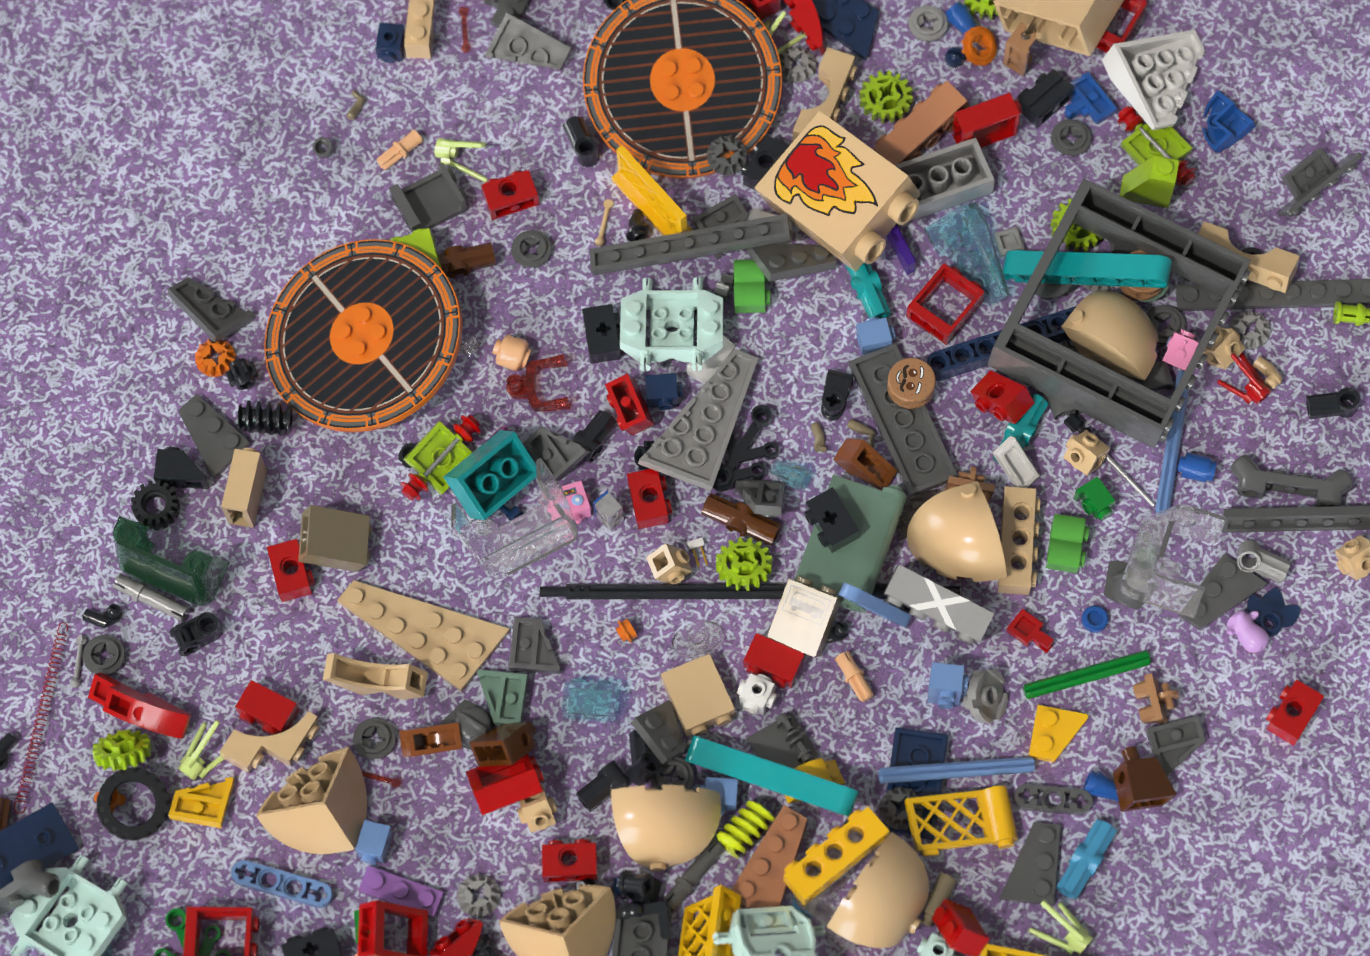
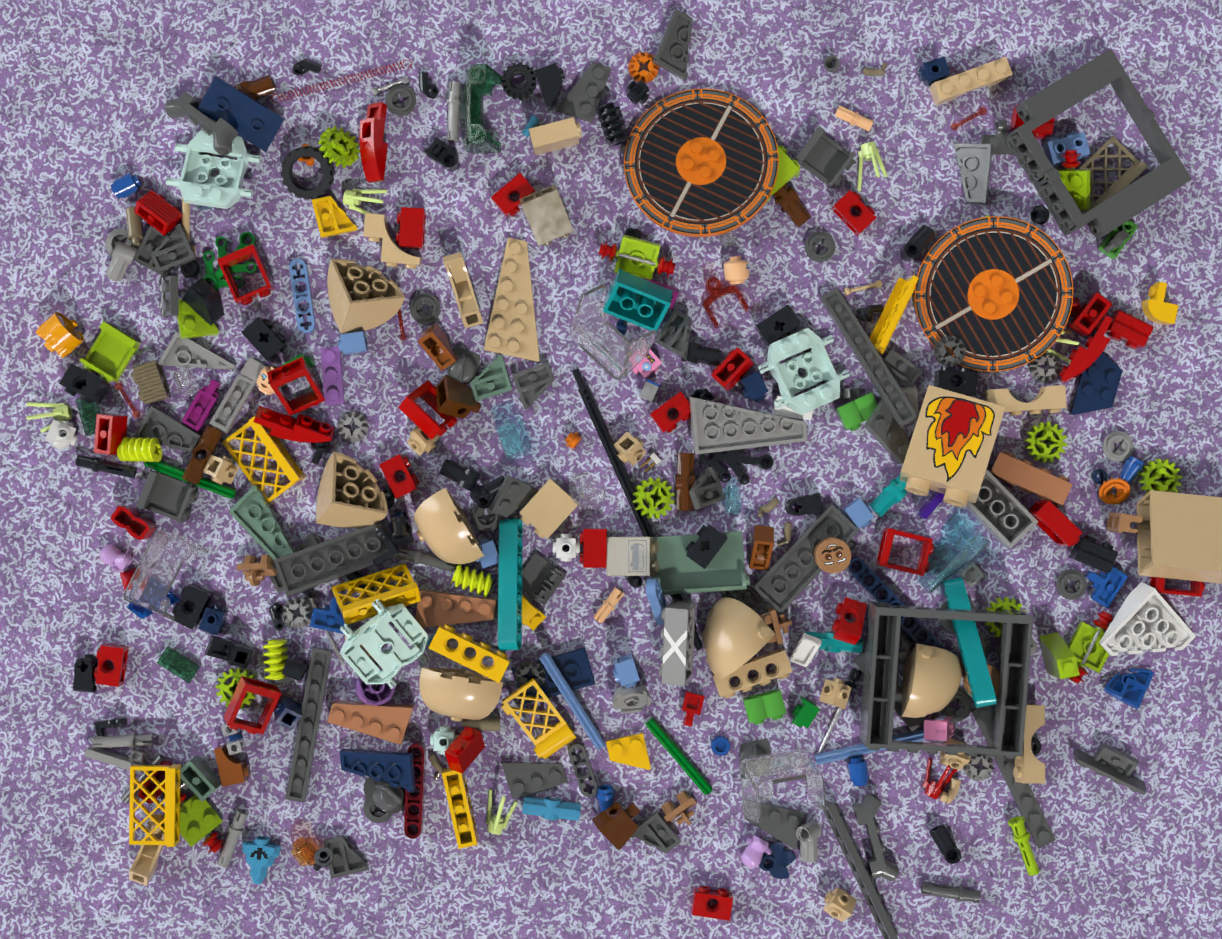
camera: 65 degrees right, 20 degrees up
(213, 511) = (533, 121): none -> dark azure piece

